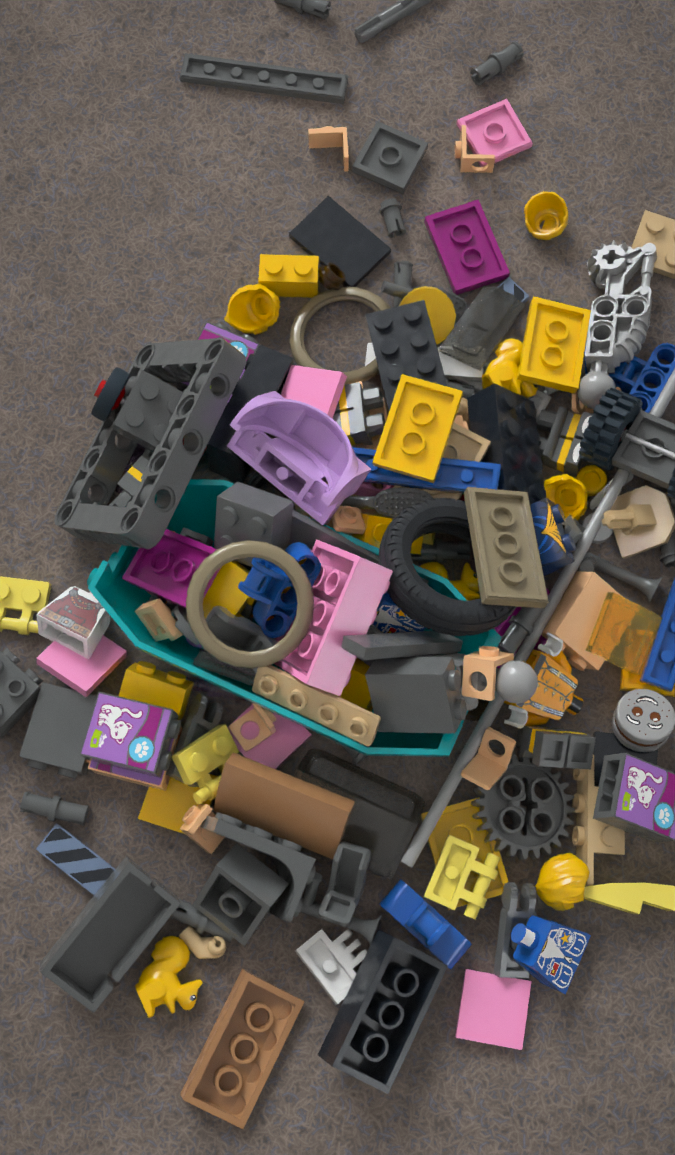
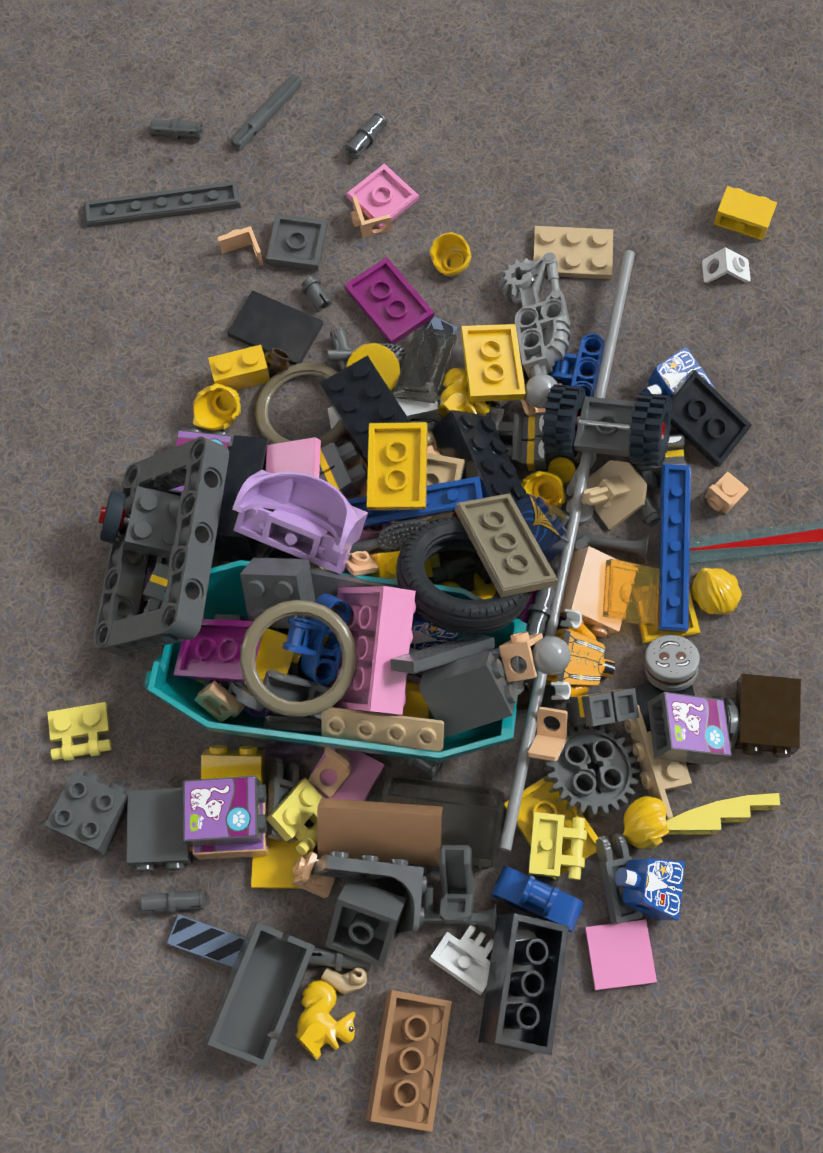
camera: 15 degrees left, 5 degrees down
(74, 621) = (140, 727): torso -> none
(78, 671) = (156, 759): bright pink tile -> none

